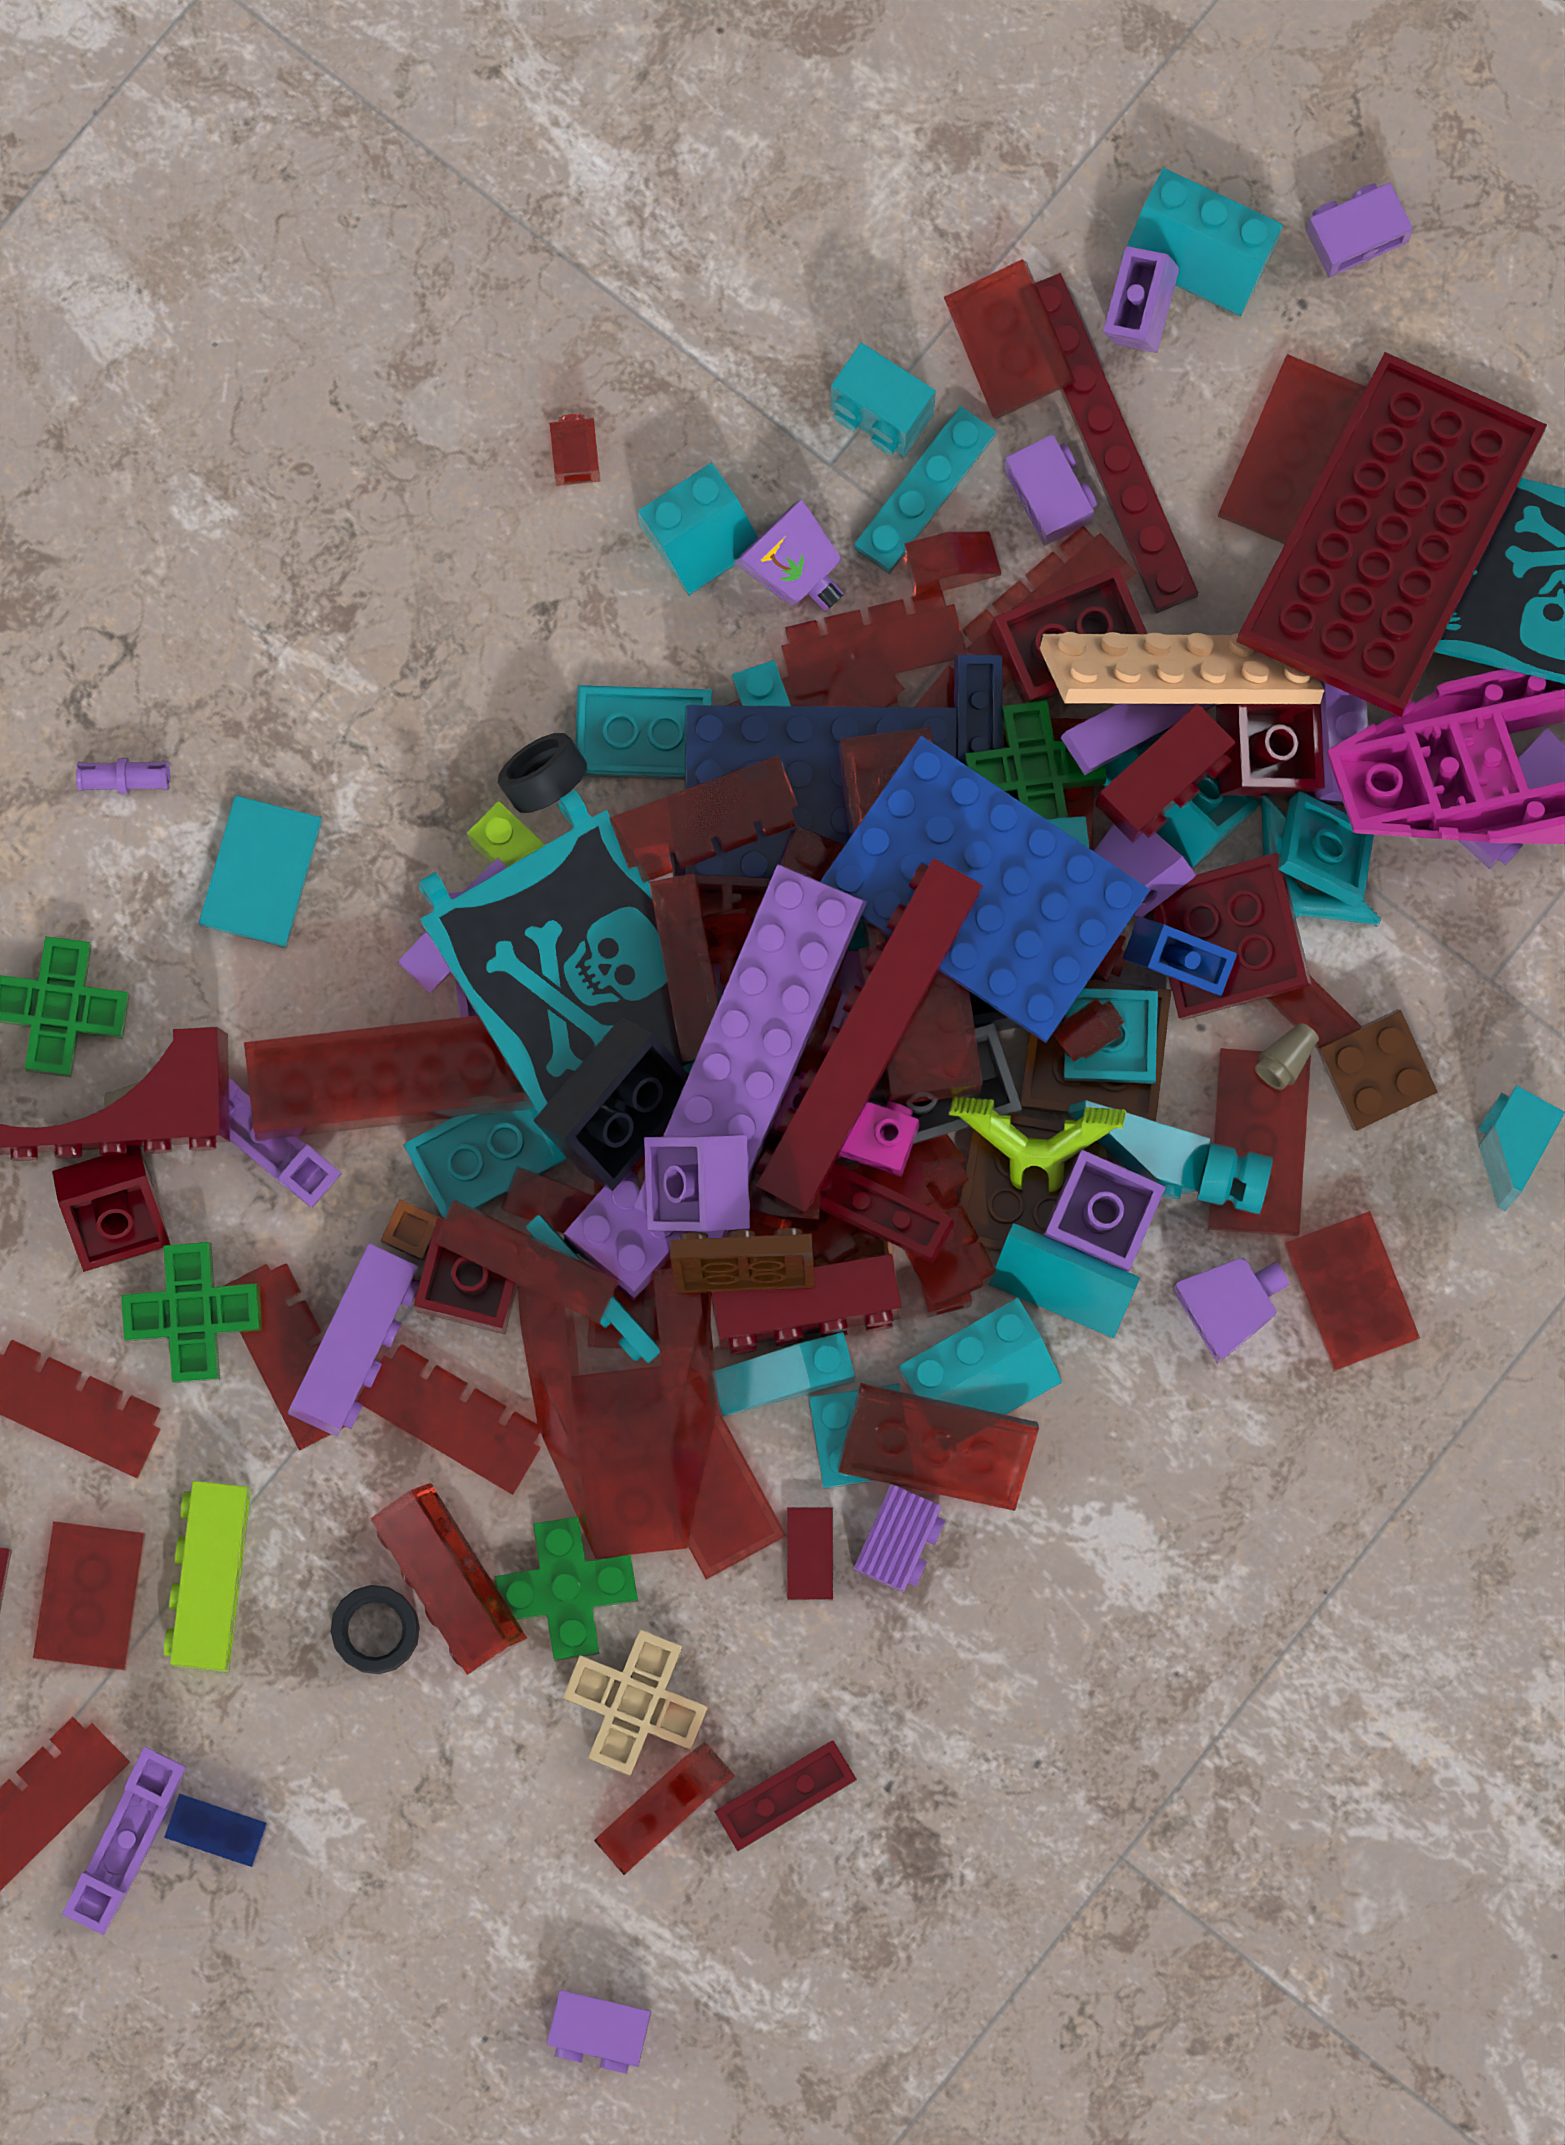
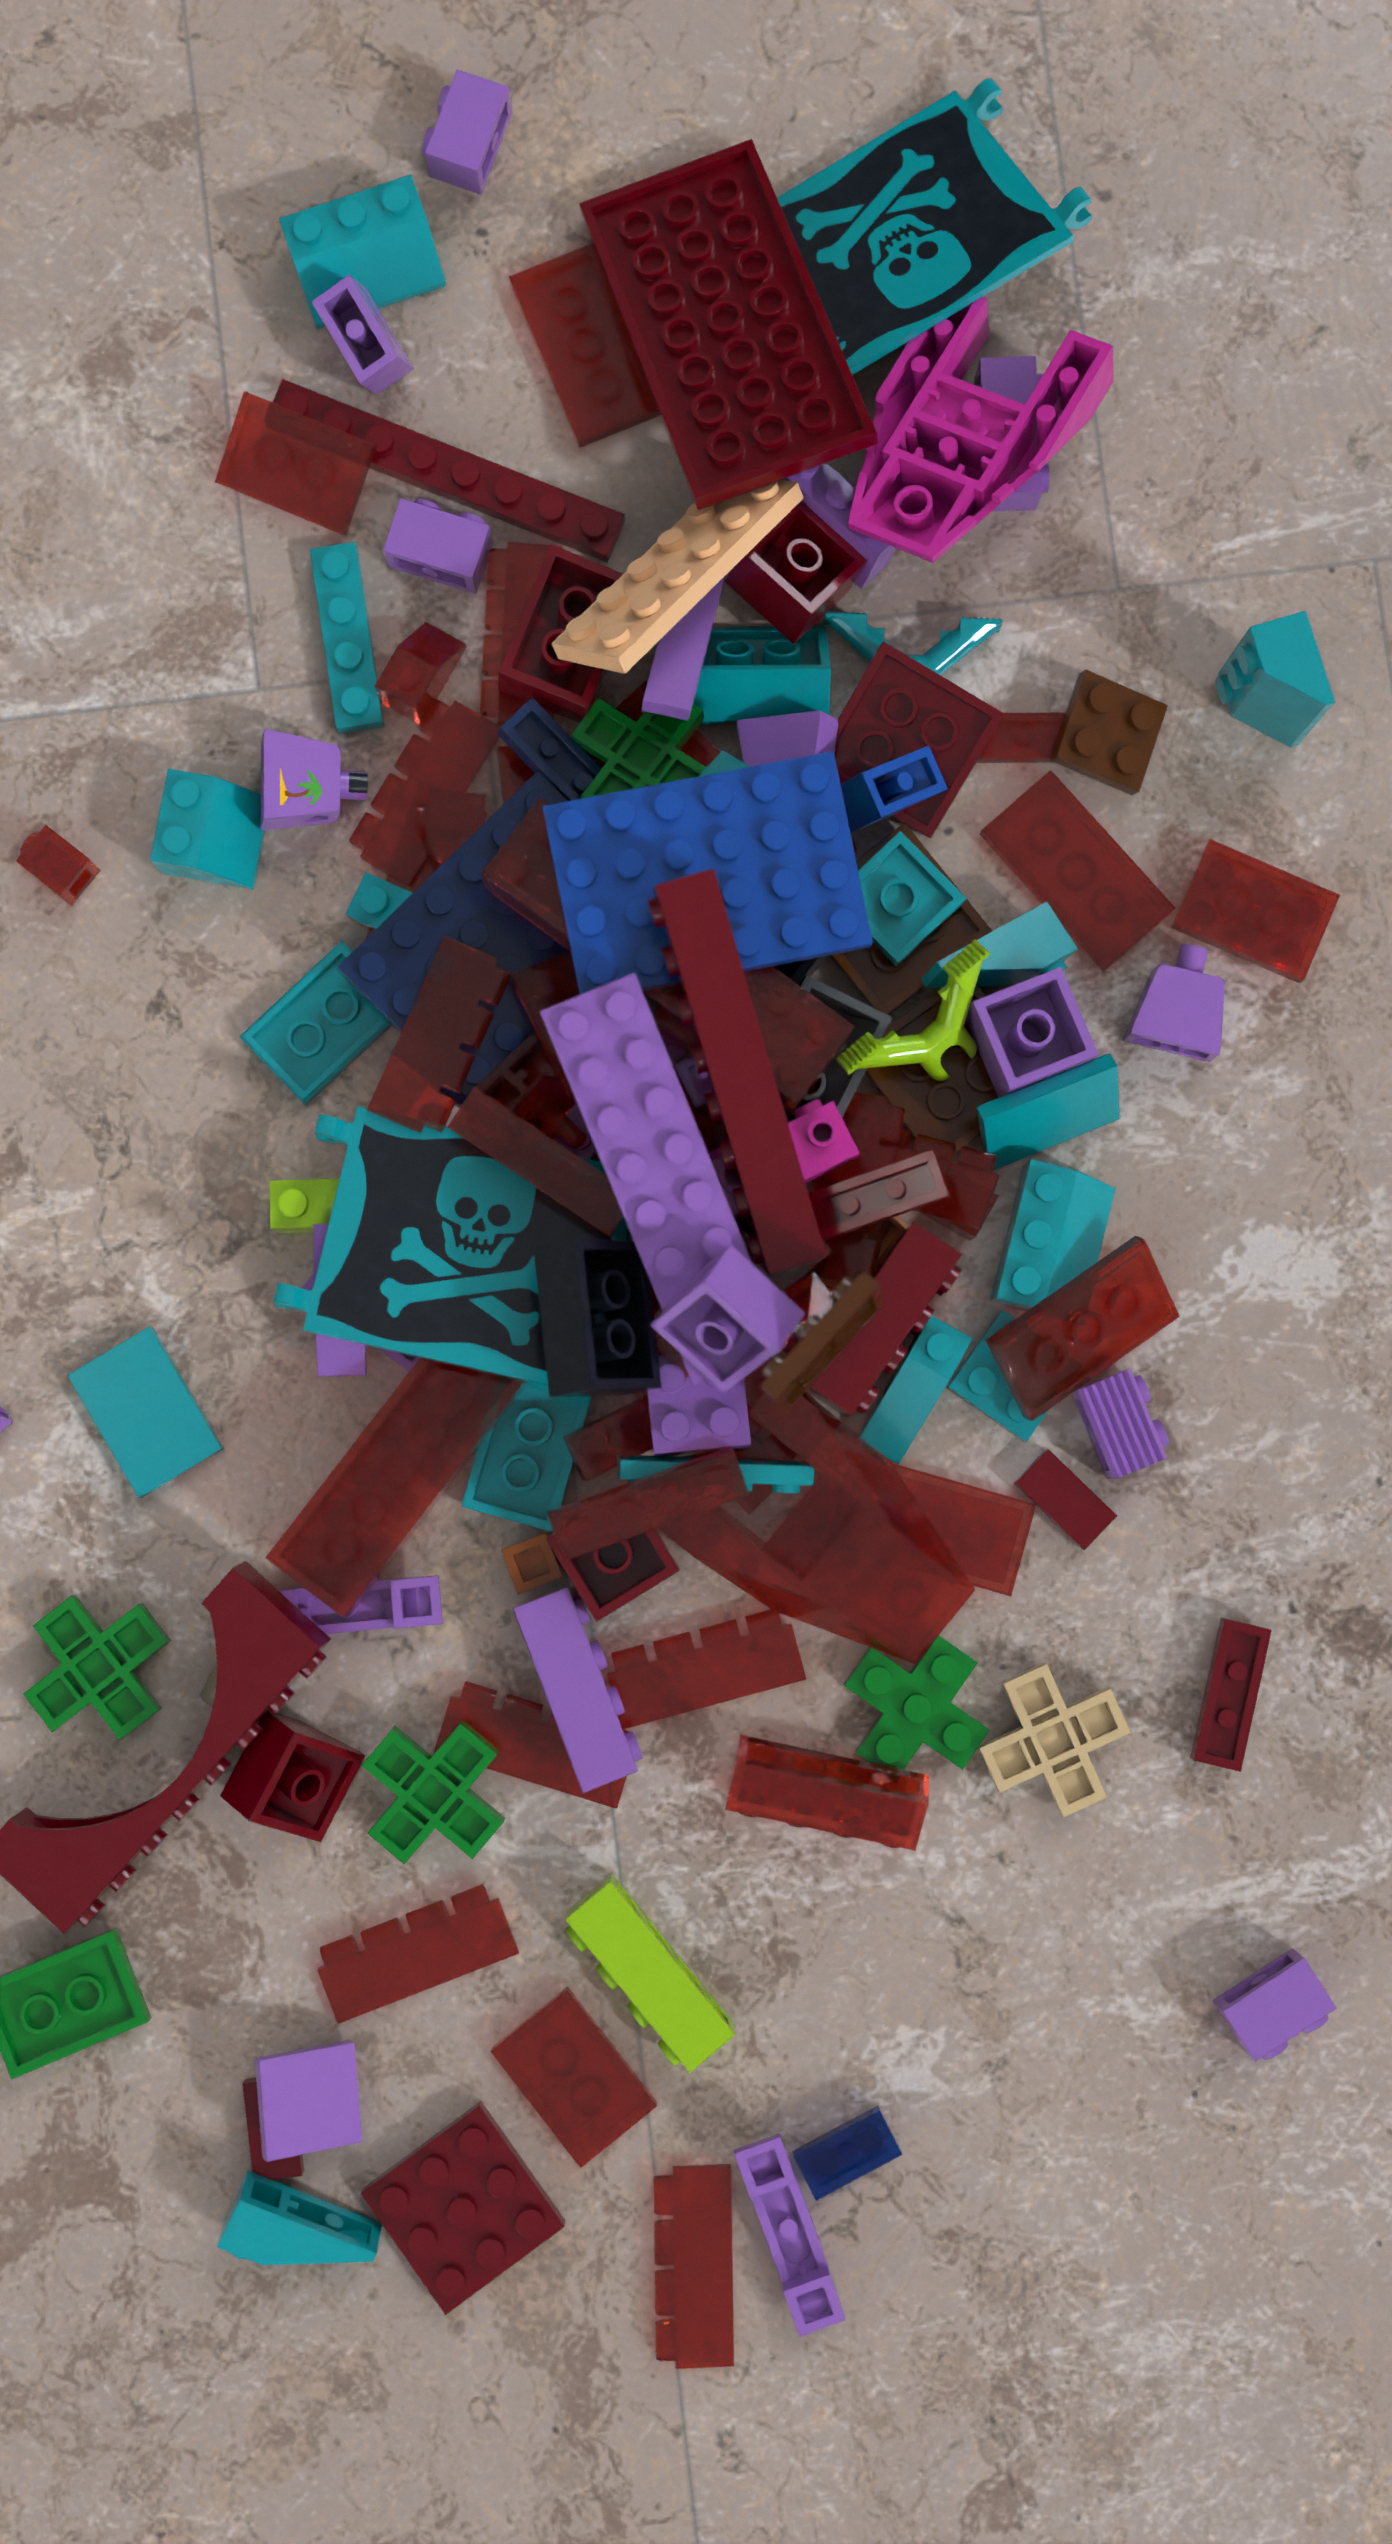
camera: 50 degrees left, 5 degrees up
(353, 1602) = (807, 1921): black tyre -> none
(542, 772) = (280, 1127): black tyre -> none
(664, 1807) = (1155, 1792): clear red slope -> none
(881, 401) = (247, 597): teal brick -> none
(1089, 1030) = (886, 906): clear red brick -> none
(1166, 774) = (749, 659): dark red brick -> none
(1222, 1166) = (1100, 909): teal wheel -> none
(1286, 1057) = (1039, 787): dark tan cone -> none
(1324, 850) = (912, 605): teal plate -> none

